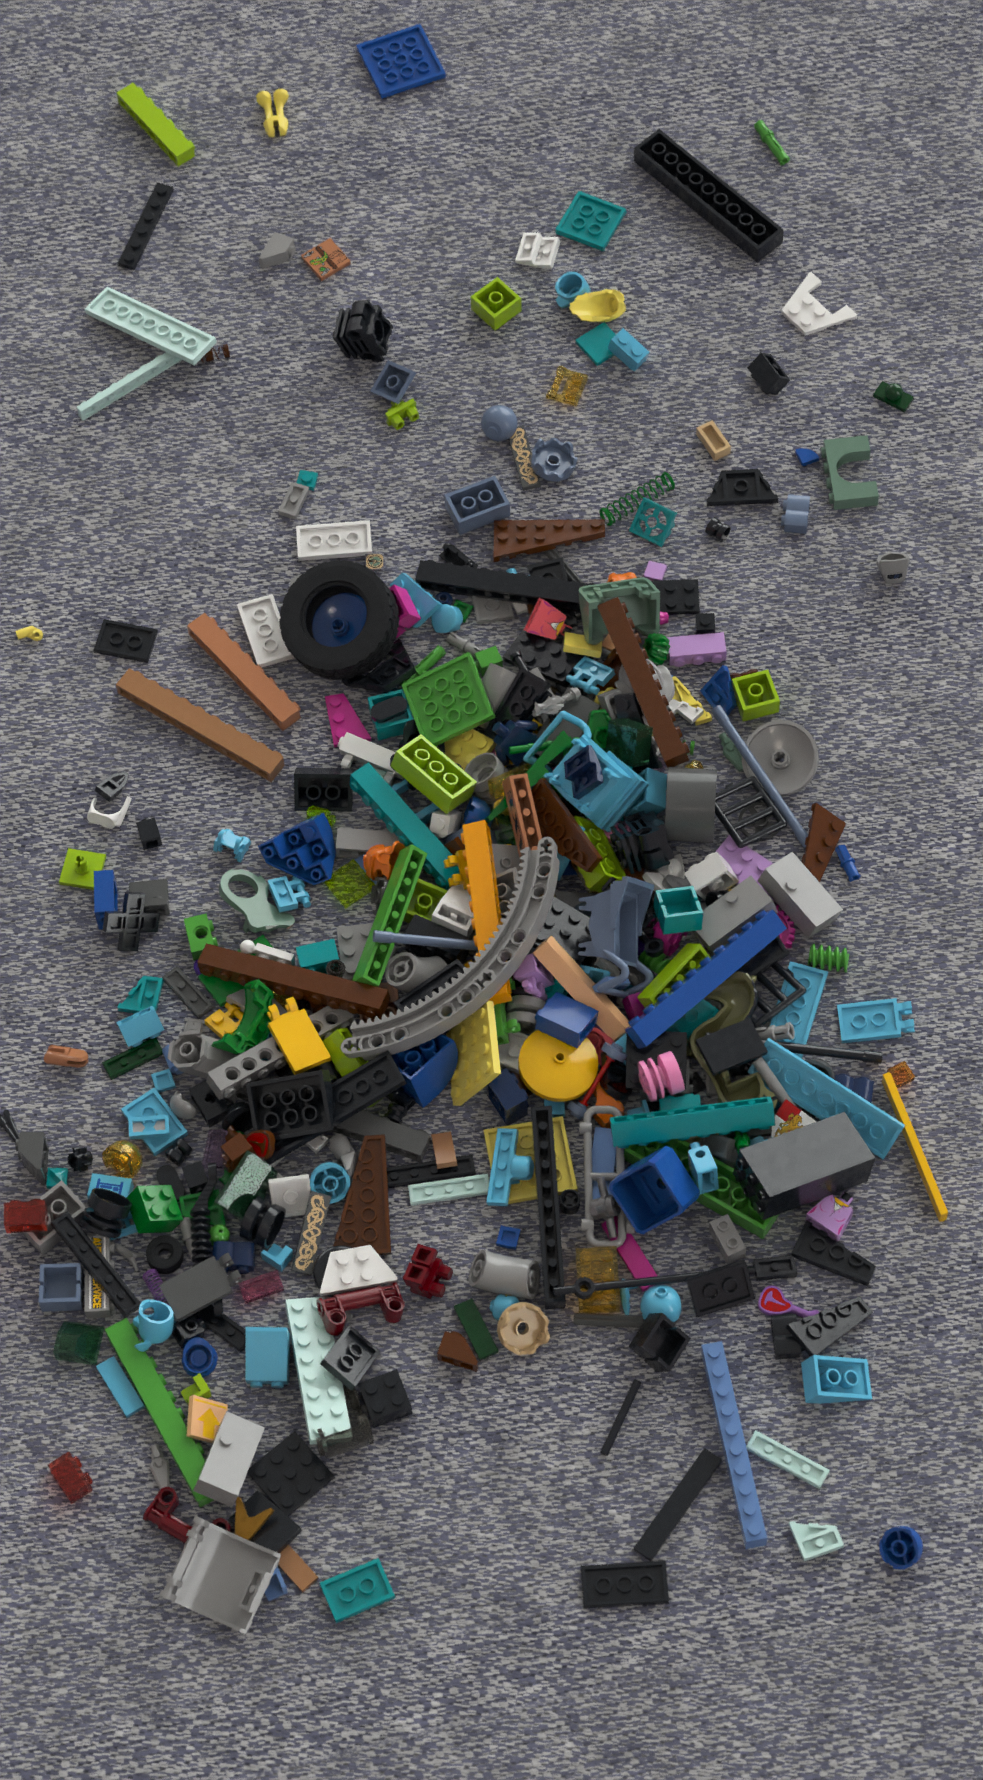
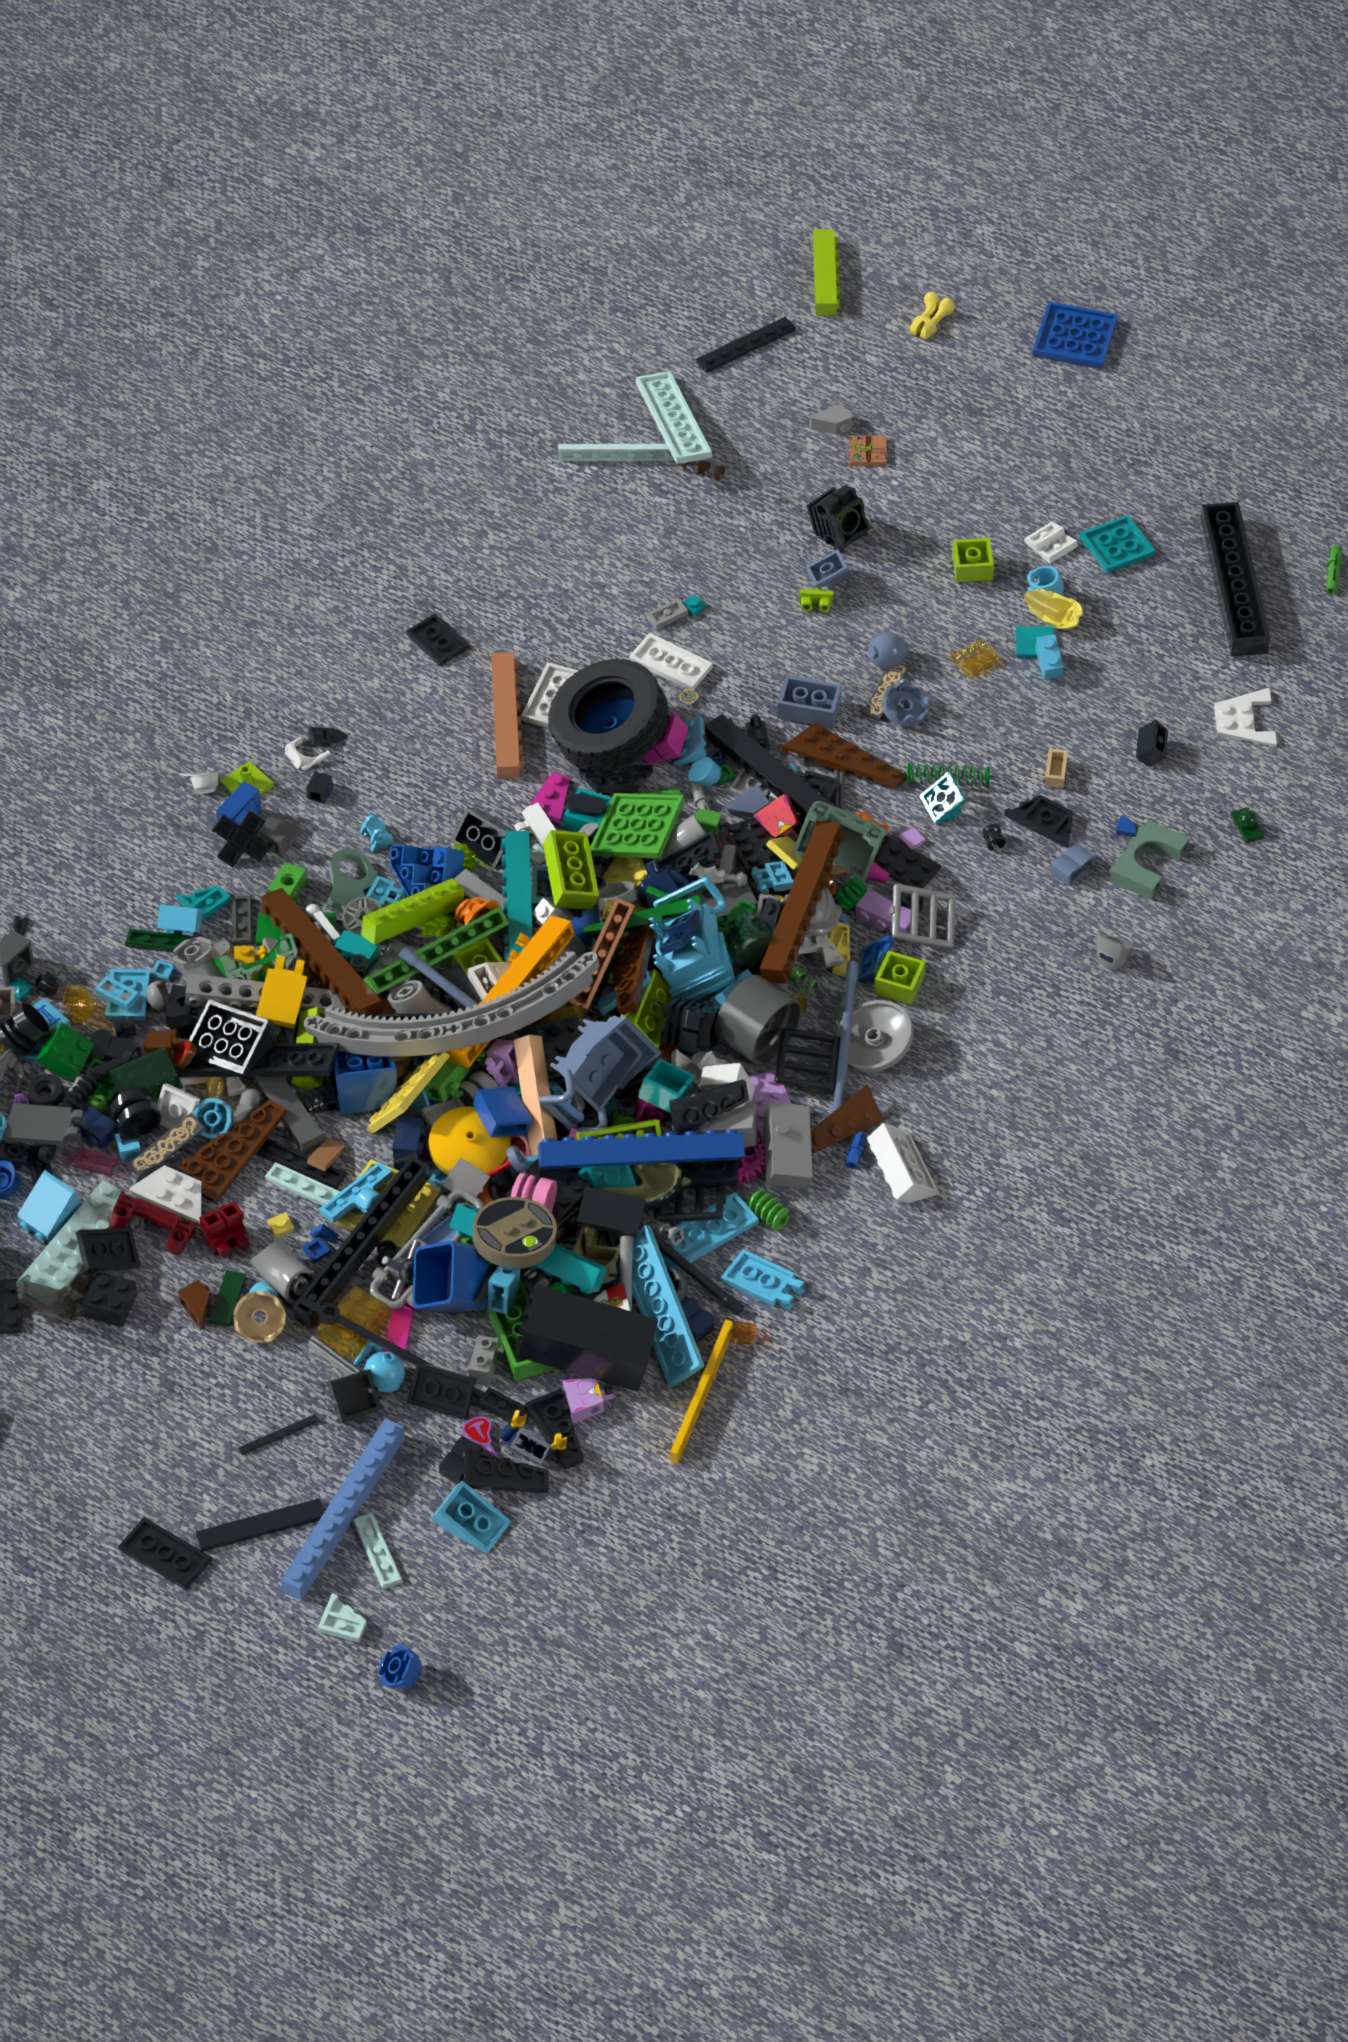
camera: 35 degrees right, 10 degrees down
(30, 632) = (370, 590): light yellow arm -> none
(46, 890) = (204, 782): none -> white piece
(66, 1056) = (105, 906): nougat arm -> none
(200, 724) = (435, 734): medium nougat brick -> none
(285, 927) = (353, 911): none -> light grey wheel
(305, 1157) = (215, 1087): none -> clear yellow cone
(335, 893) = (412, 911): none -> lime brick
(460, 1236) = (280, 1225): none -> light yellow plate
(502, 1217) = (324, 1231): none -> blue tile
(509, 622) = (748, 802): none -> sand blue slope
(583, 1096) = (466, 1177): none -> light grey piece
(683, 1118) = (514, 1232): none -> piece
(689, 1168) = (484, 1288): none -> black bar
(710, 642) = (913, 935): none -> light grey bar
(724, 906) = (704, 1106): none -> black wing
(829, 1288) = (527, 1444): none -> dark blue torso
(893, 851) = (901, 1164): none -> white slope

